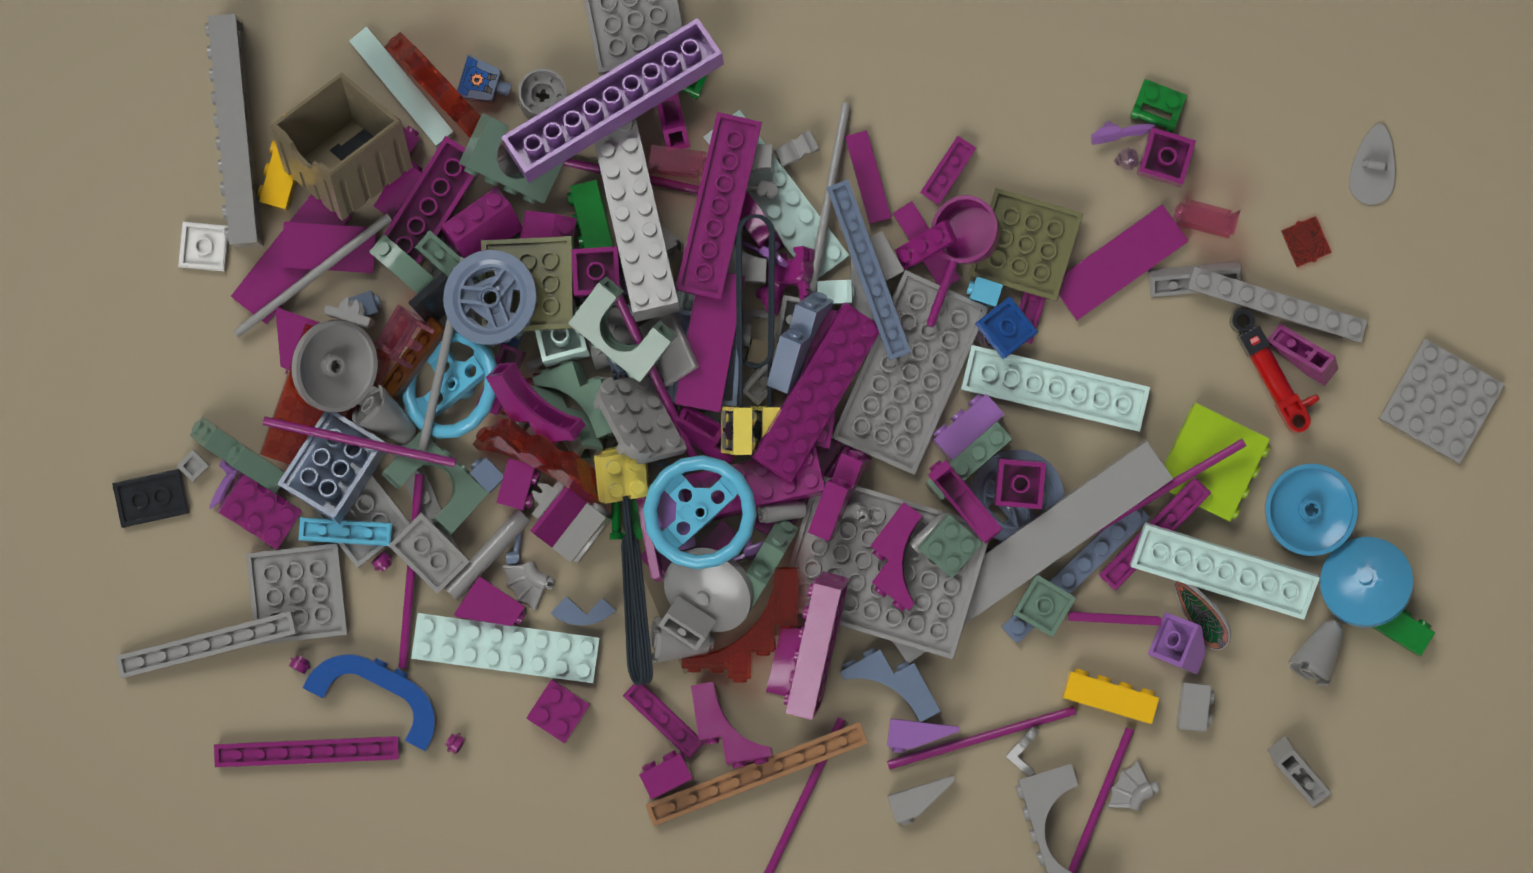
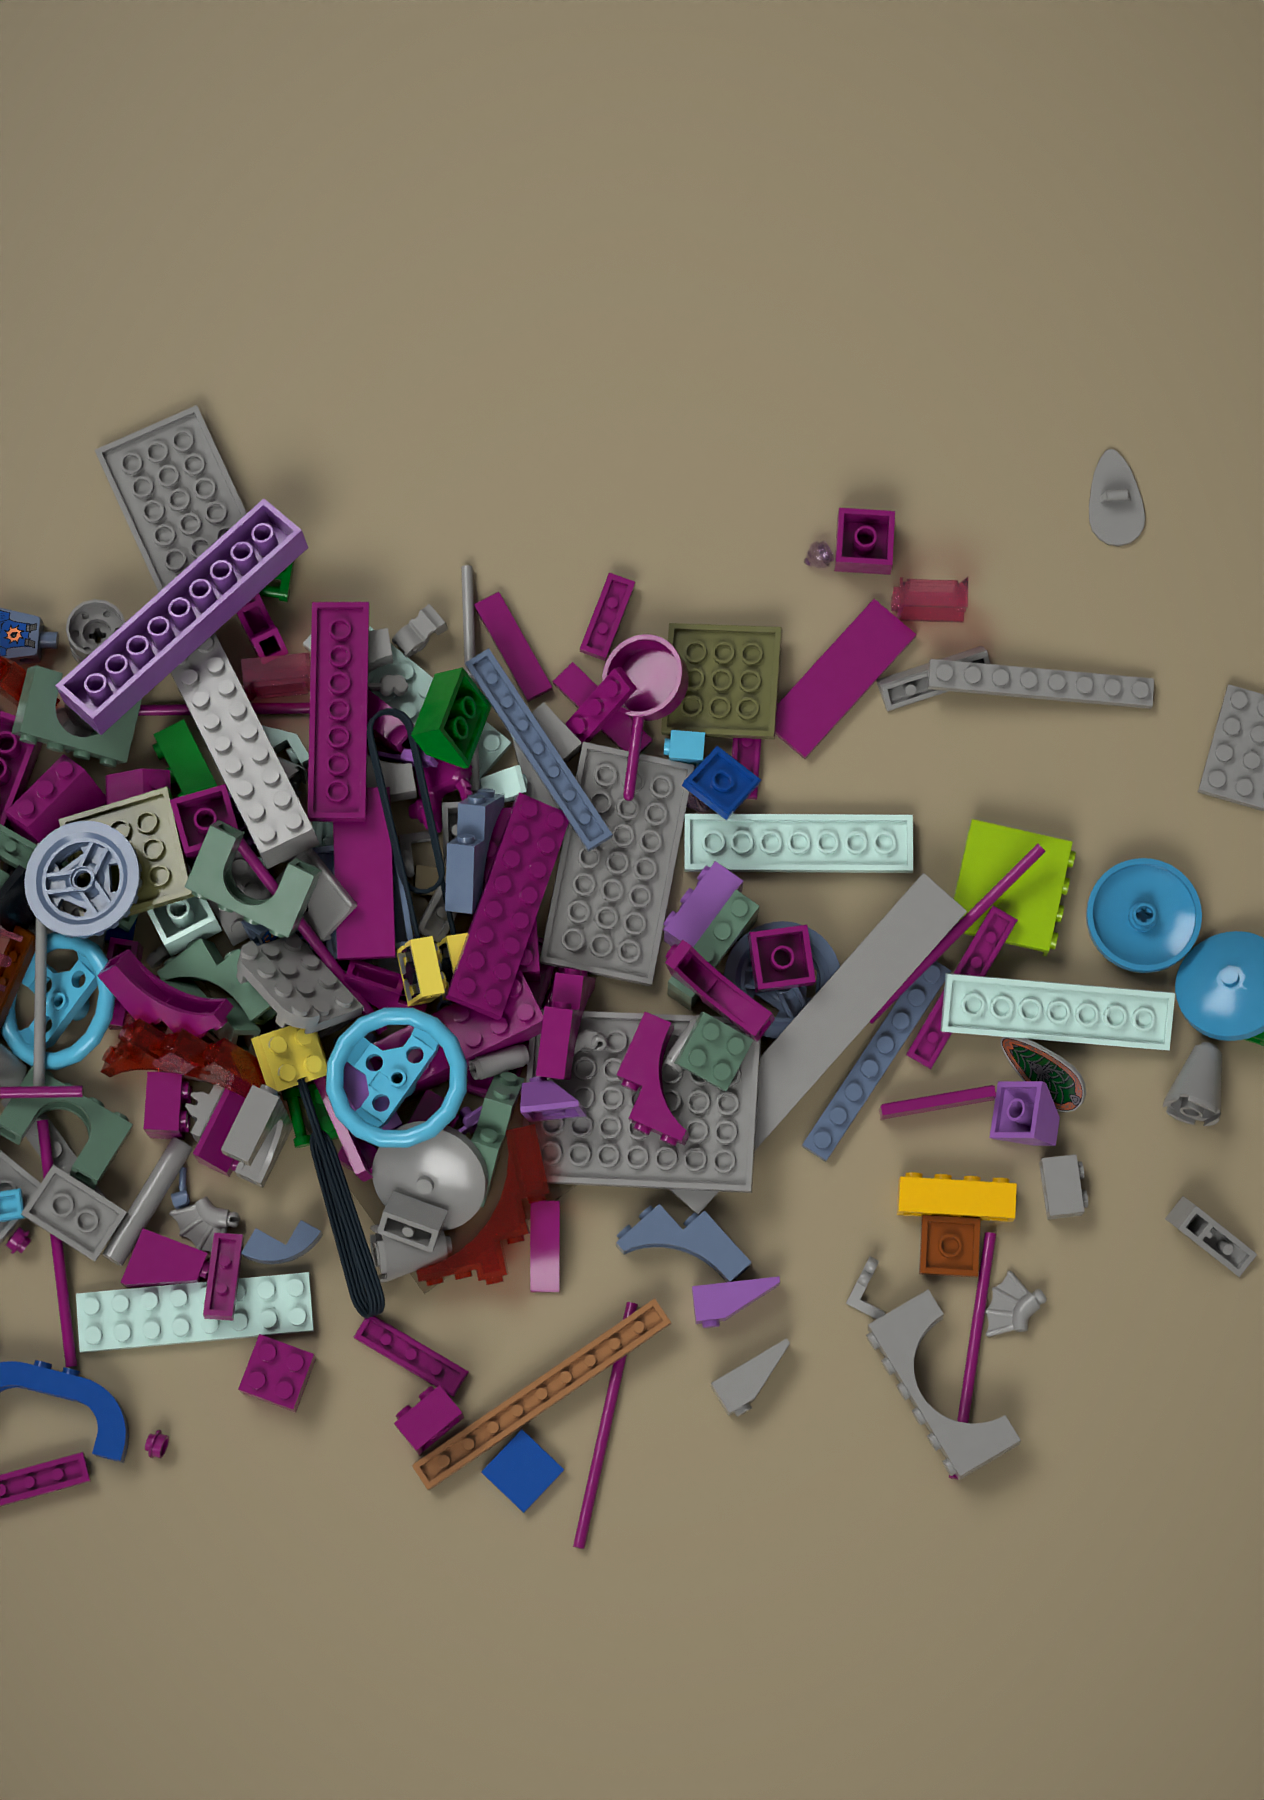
camera: 15 degrees left, 10 degrees down
(486, 474) = (125, 1103): sand blue brick -> none
(533, 628) = (223, 1276): none -> magenta plate
(666, 211) = (282, 739): none -> light aqua slope
(713, 726) = (477, 1347): magenta arch -> none
(728, 827) = (522, 1471): none -> blue tile
(806, 231) = (452, 718): none -> green slope
(812, 551) = (547, 1101): none -> medium lavender slope
(816, 645) = (578, 1212): brick -> none
(982, 737) = (809, 1287): magenta piece -> none
(1044, 605) = (847, 1104): sand green plate -> none
(1096, 732) = (949, 1246): none -> dark orange plate
(1112, 132) = (795, 528): medium lavender piece -> none
(1162, 99) = (841, 478): green plate -> none
(1257, 348) = (1028, 739): red piece -> none
(1304, 354) = (1091, 735): magenta slope -> none
(1306, 241) = (1057, 604): clear red piece -> none

